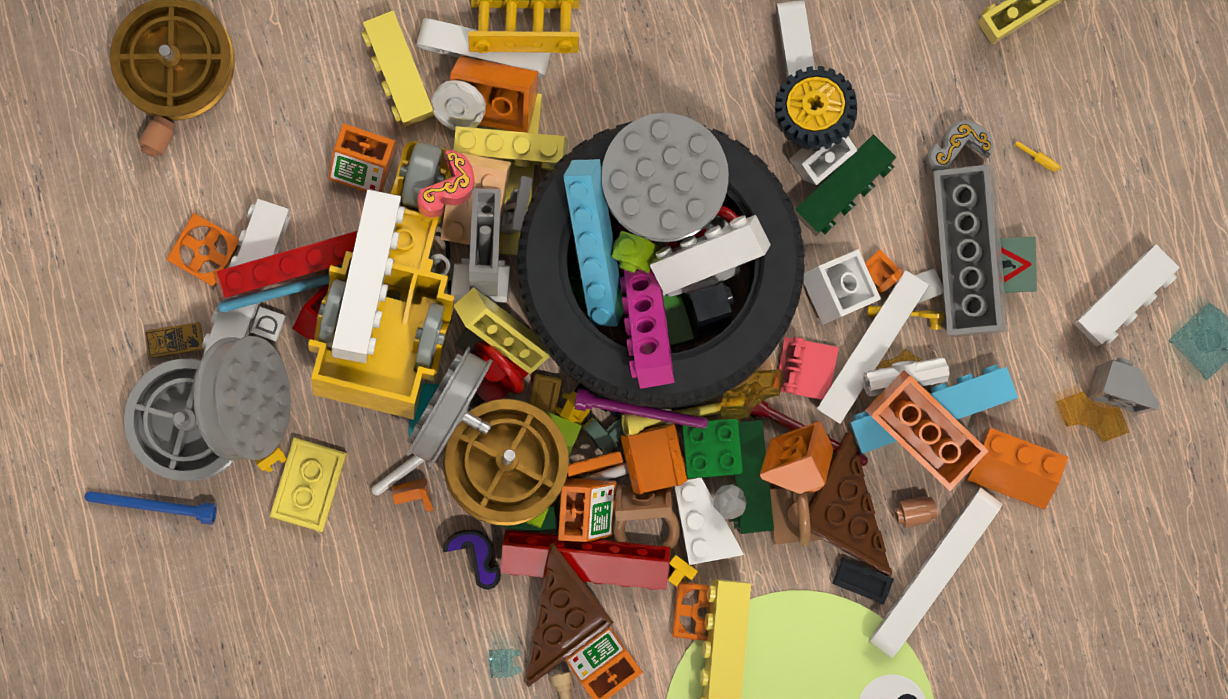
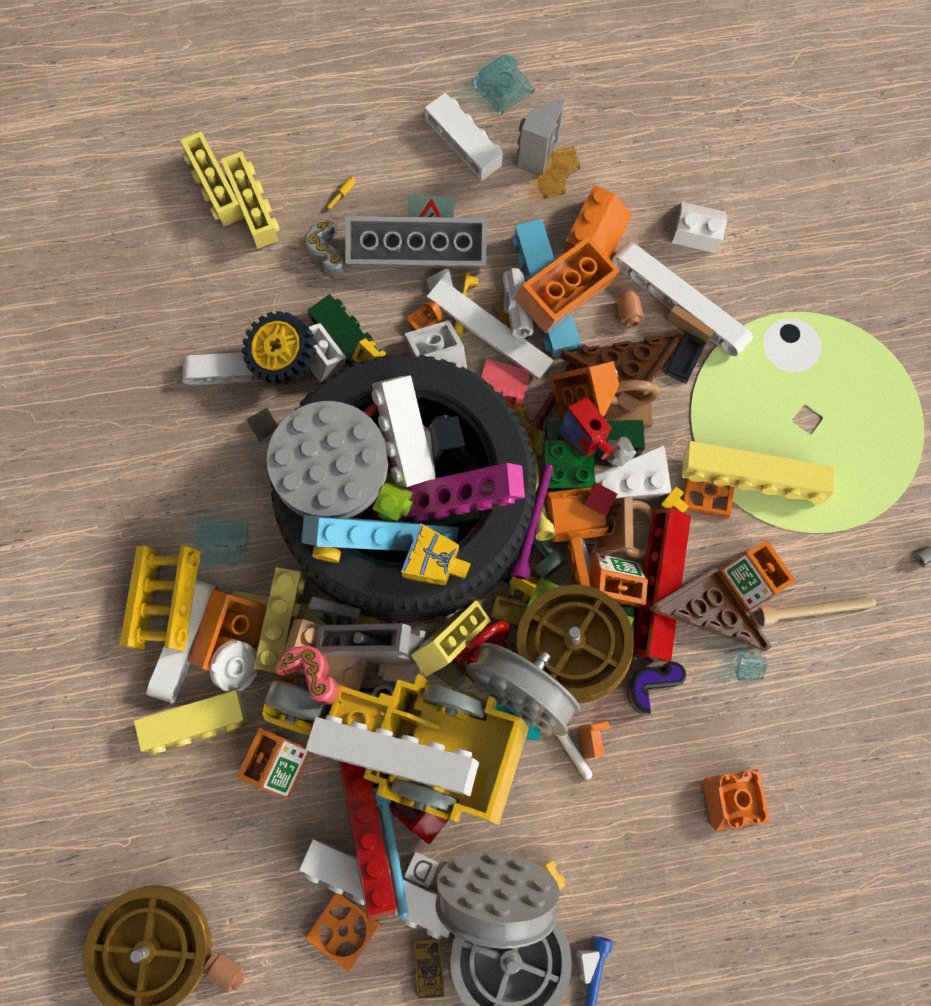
camera: 90 degrees left, 10 degrees down
(190, 499) = (587, 963): none -> white slope
(308, 485) = (578, 841): light yellow tile -> none
(361, 649) = (735, 800): none -> orange slope
(562, 195) = (326, 554): none -> yellow tile
(568, 298) = (433, 558): none -> torso
(602, 74) = (222, 534): none -> clear light blue plate
(669, 482) = (600, 498): none -> dark red tile
(735, 100) = (262, 424): none -> clear smoke tile
(745, 461) = (586, 429): none -> red torso
(818, 208) = (366, 350): none -> yellow tile
(902, 583) = (689, 324): none -> medium nougat tile
(1010, 49) = (249, 197): none -> light yellow brick
(1036, 592) = (699, 227): none -> white slope

